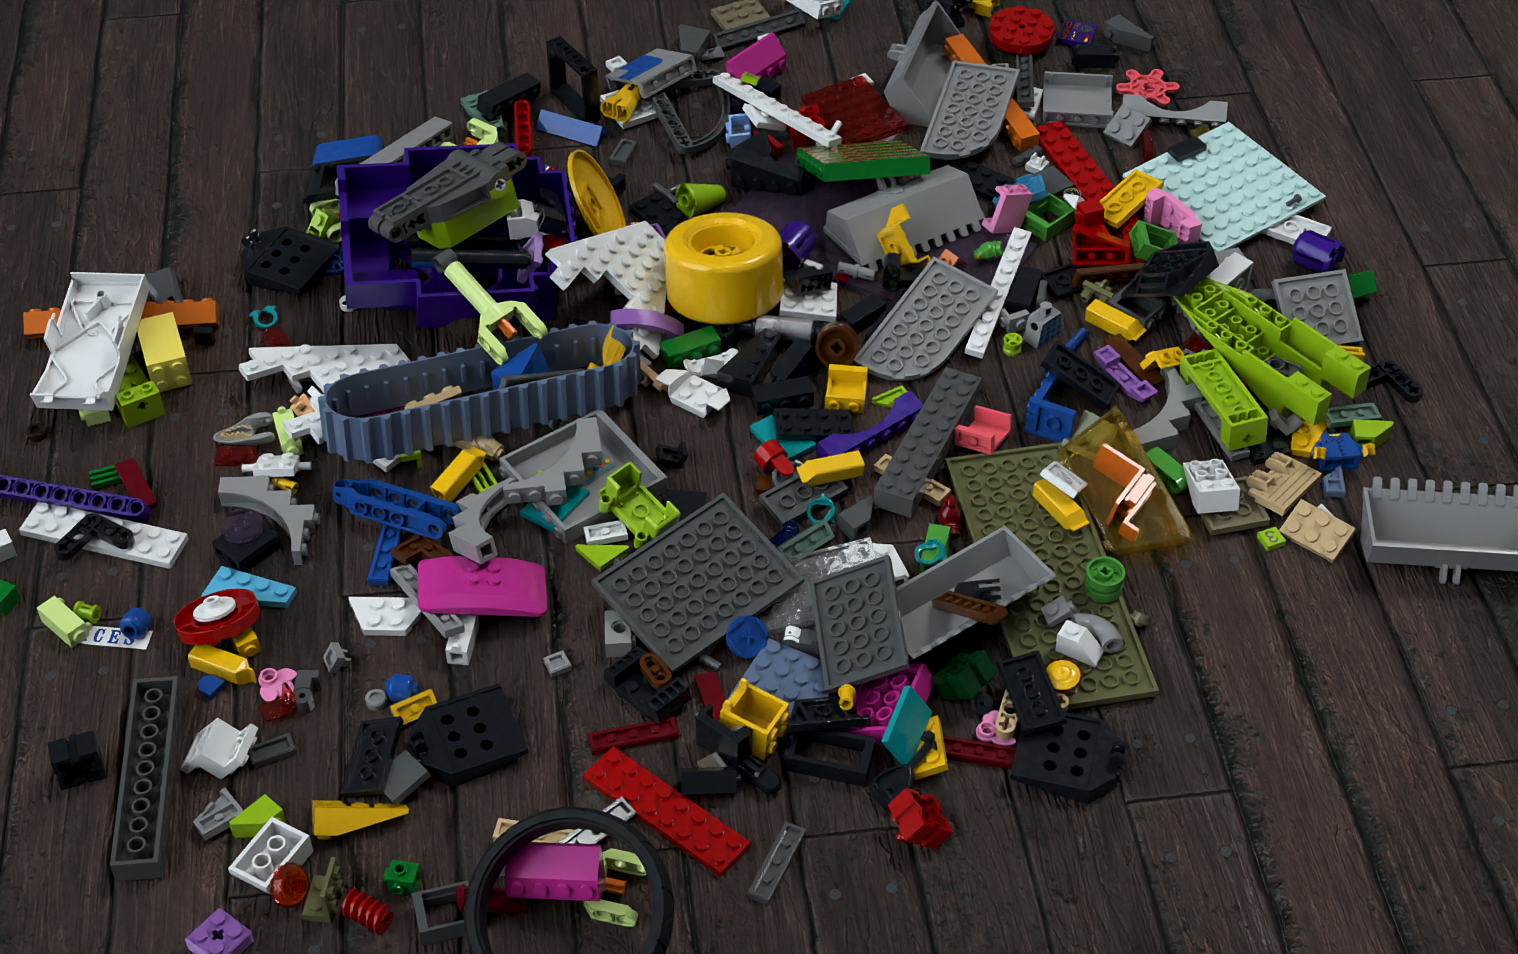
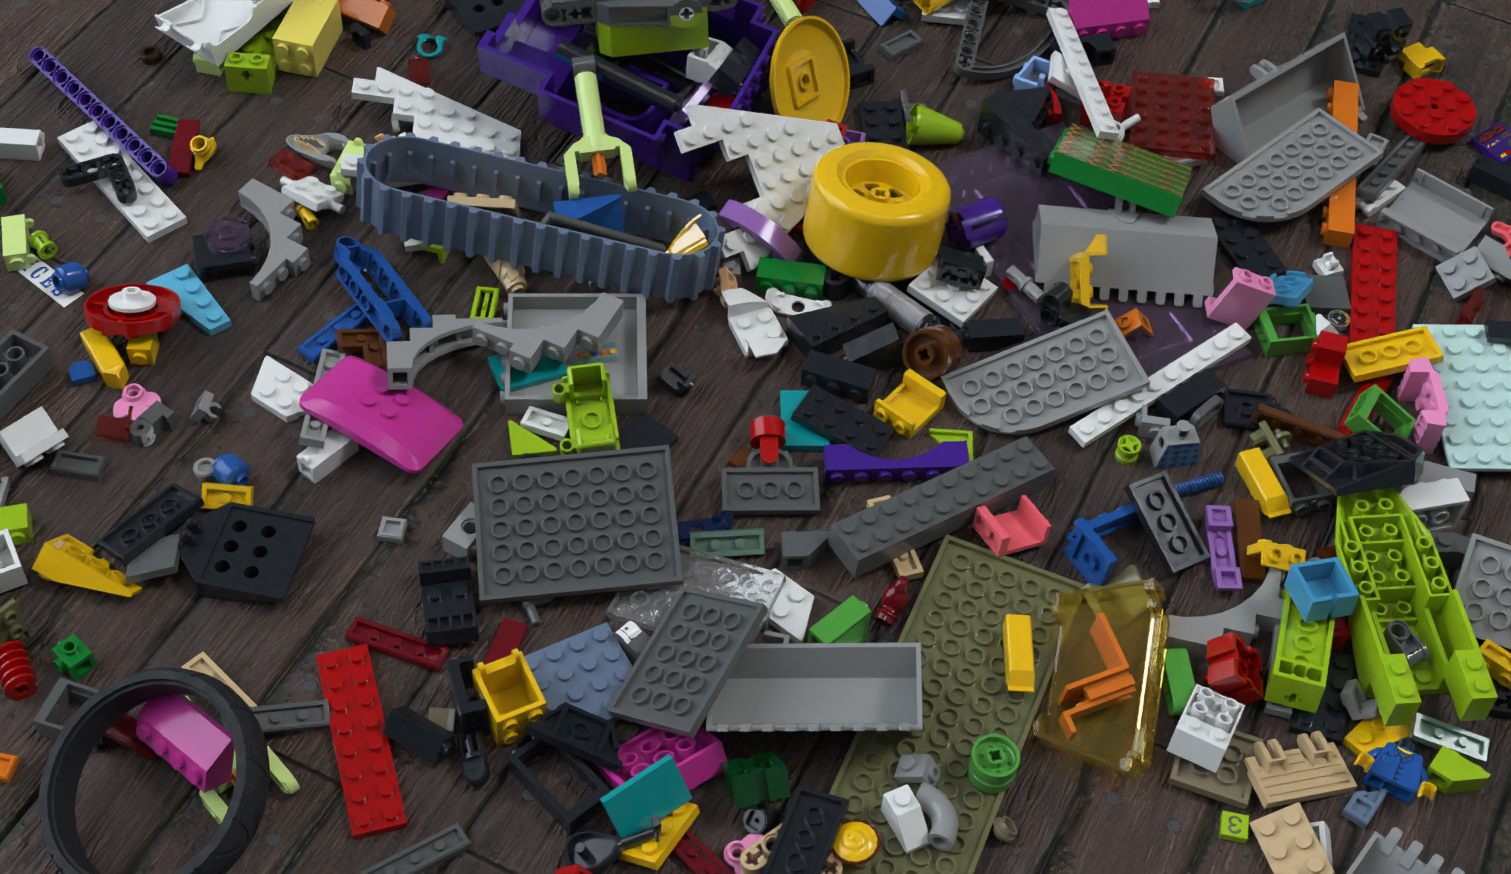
camera: 30 degrees right, 5 degrees up
(155, 479) = (203, 150): none -> yellow animal
(458, 474) = (461, 288): yellow piece -> none
(658, 674) = (462, 593): reddish brown plate -> none
(711, 367) = (794, 307): light grey slope -> none
(746, 636) = (581, 607): blue tile -> none
(750, 78) = (1084, 27): lime tile -> none
(823, 500) = (780, 509): teal piece -> none
(831, 468) = (812, 480): yellow piece -> none
(846, 694) = (621, 726): yellow pin -> none
(930, 545) = (833, 619): teal piece -> none
(970, 607) = (802, 711): reddish brown plate -> none
(972, 589) = (841, 694): black arm -> none
(989, 250) = (1186, 334): bright green animal -> none
(1025, 156) = (1311, 252): dark grey axle -> none
(1064, 479) = (1038, 628): white plate -> none
(1098, 248) = (1309, 392): red wedge -> none
(1196, 441) = (1234, 669): none -> red brick
(1218, 359) = (1321, 589): none -> dark azure piece

